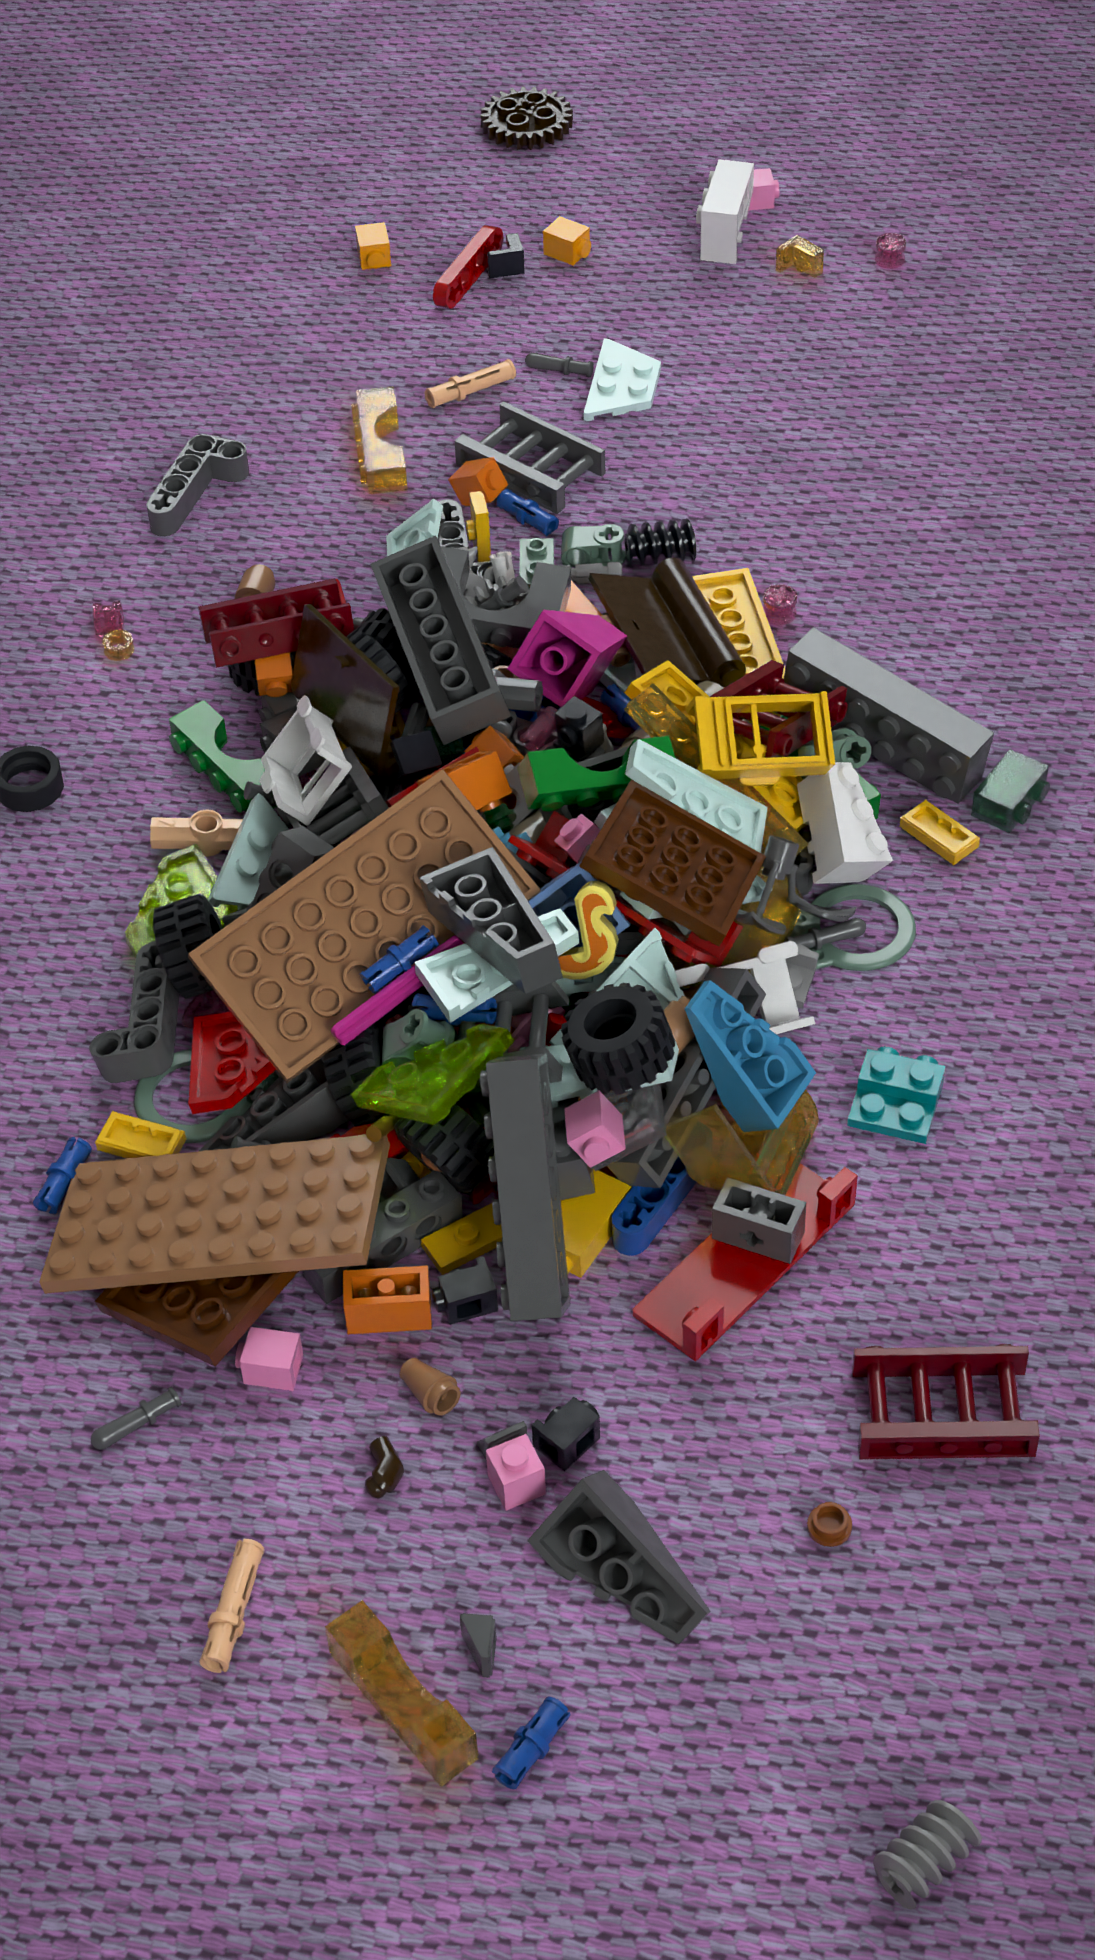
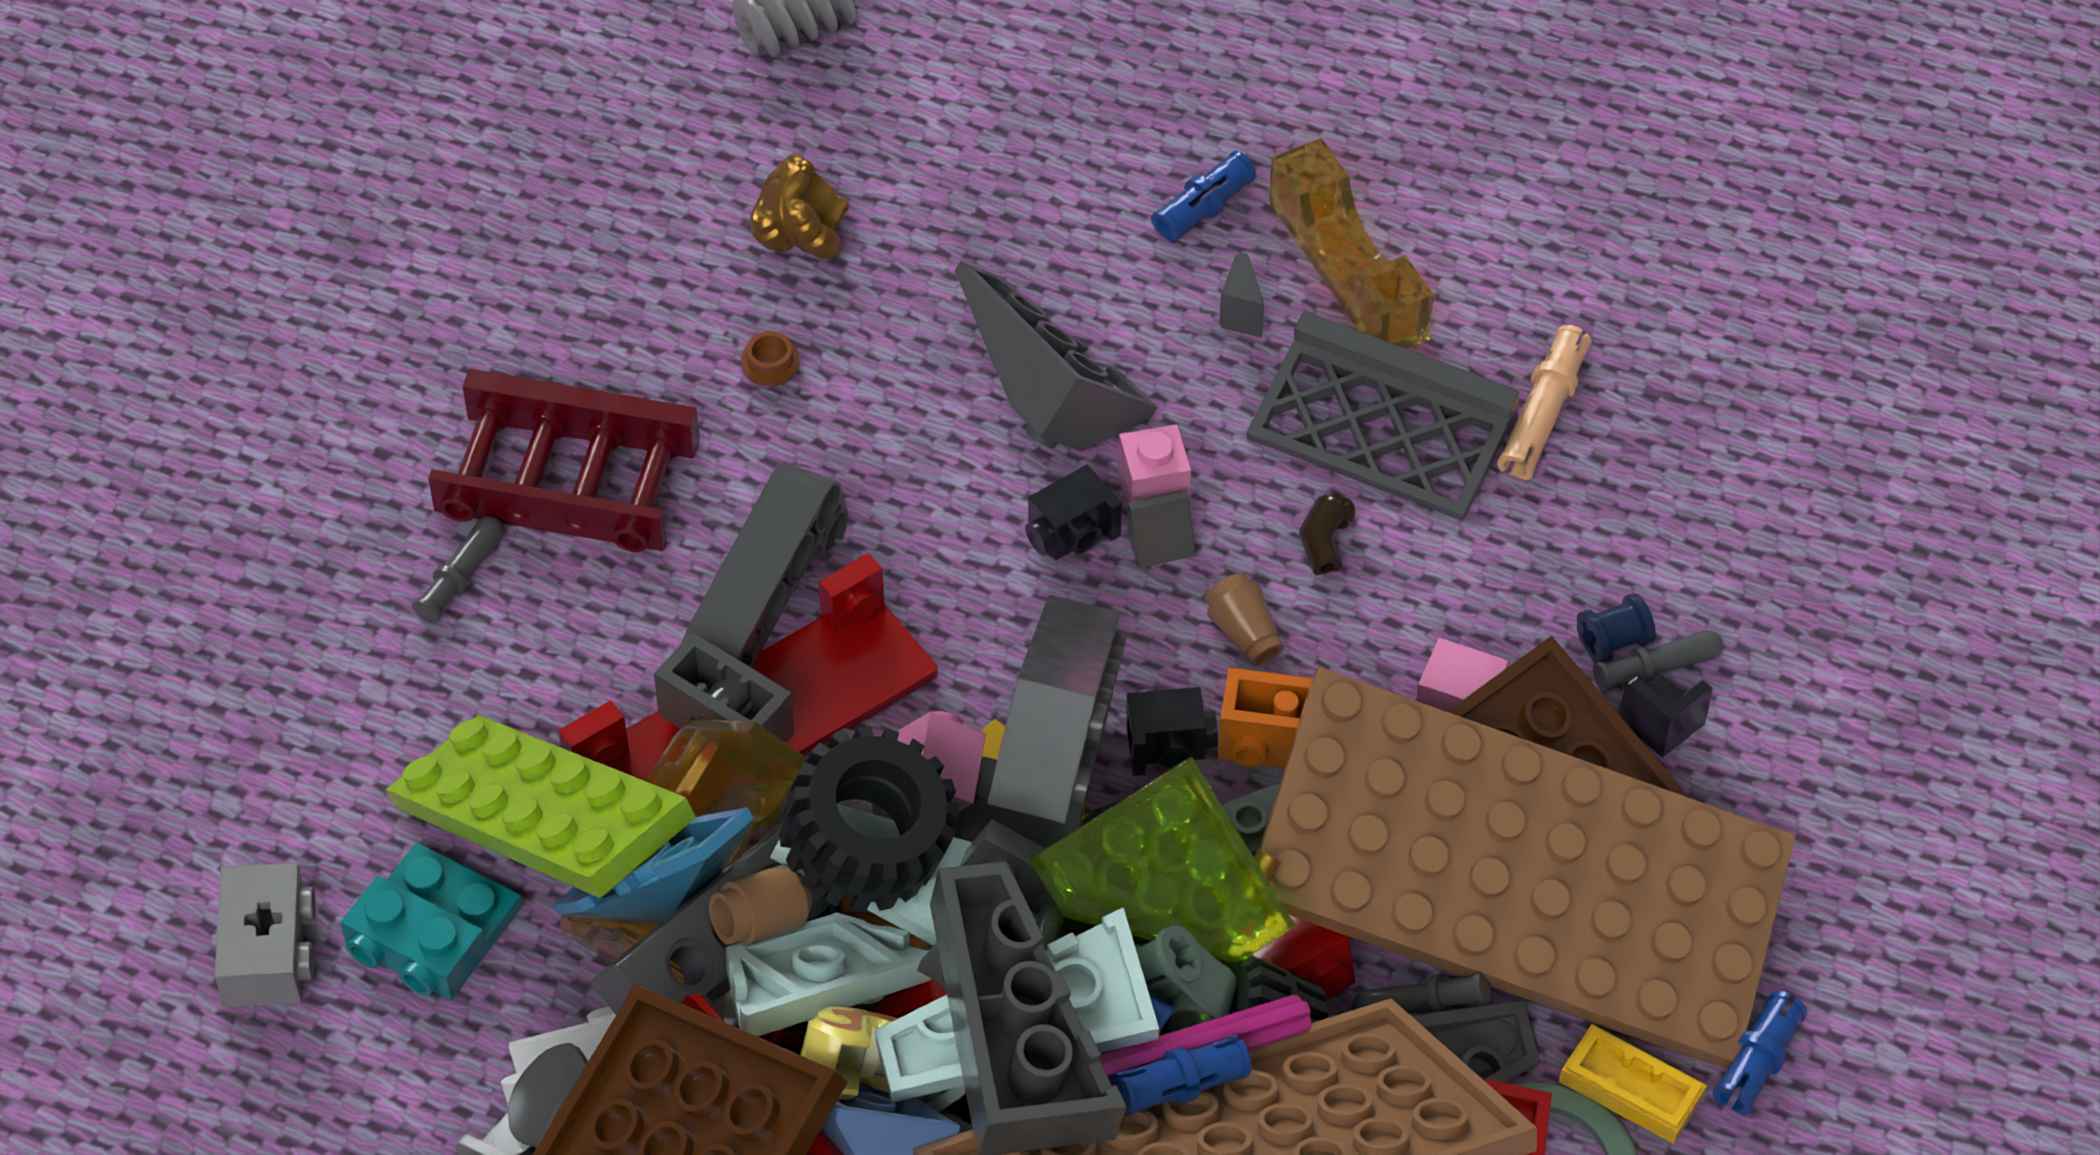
camera: 170 degrees left, 5 degrees up
(129, 1371) = (1663, 713): none -> black panel
(167, 1428) = (1616, 627): none -> dark blue bush
(328, 1596) = (1397, 372): none -> dark grey fence
(764, 1332) = (790, 523): none -> dark grey beam
(848, 1115) = (540, 804): none -> lime plate
(849, 1637) = (798, 210): none -> pearl gold hair
(986, 1312) = (452, 578): none -> dark grey piece
(991, 1061) = (259, 966): none -> light grey brick

